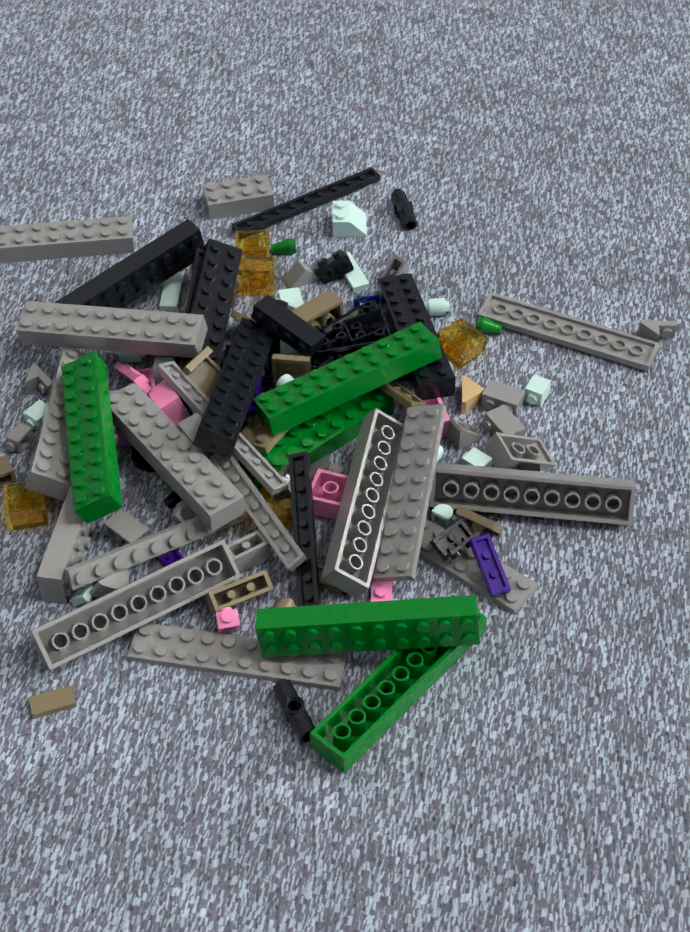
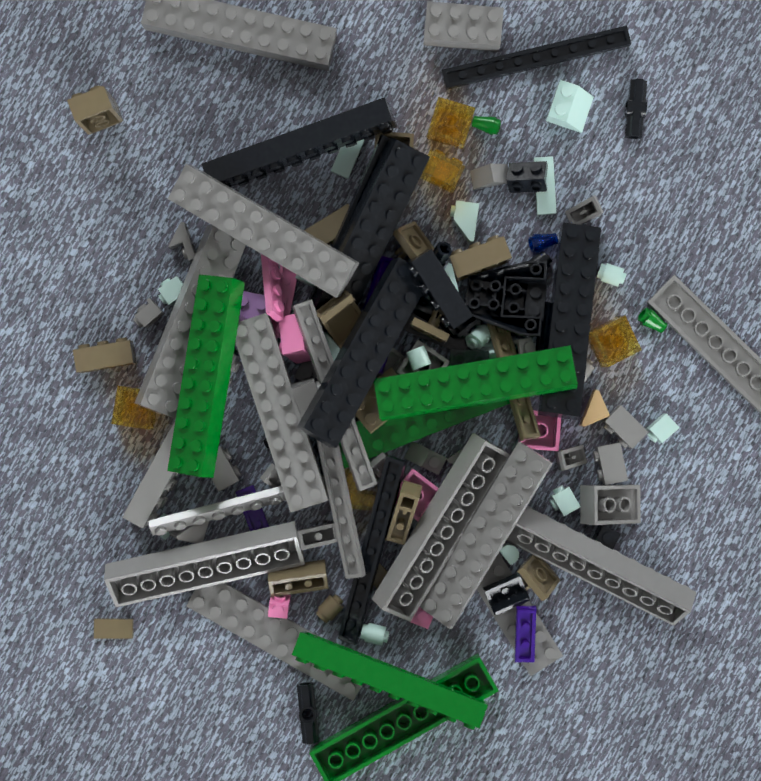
camera: 25 degrees right, 40 degrees up
(324, 496) = (404, 512): none -> dark tan slope

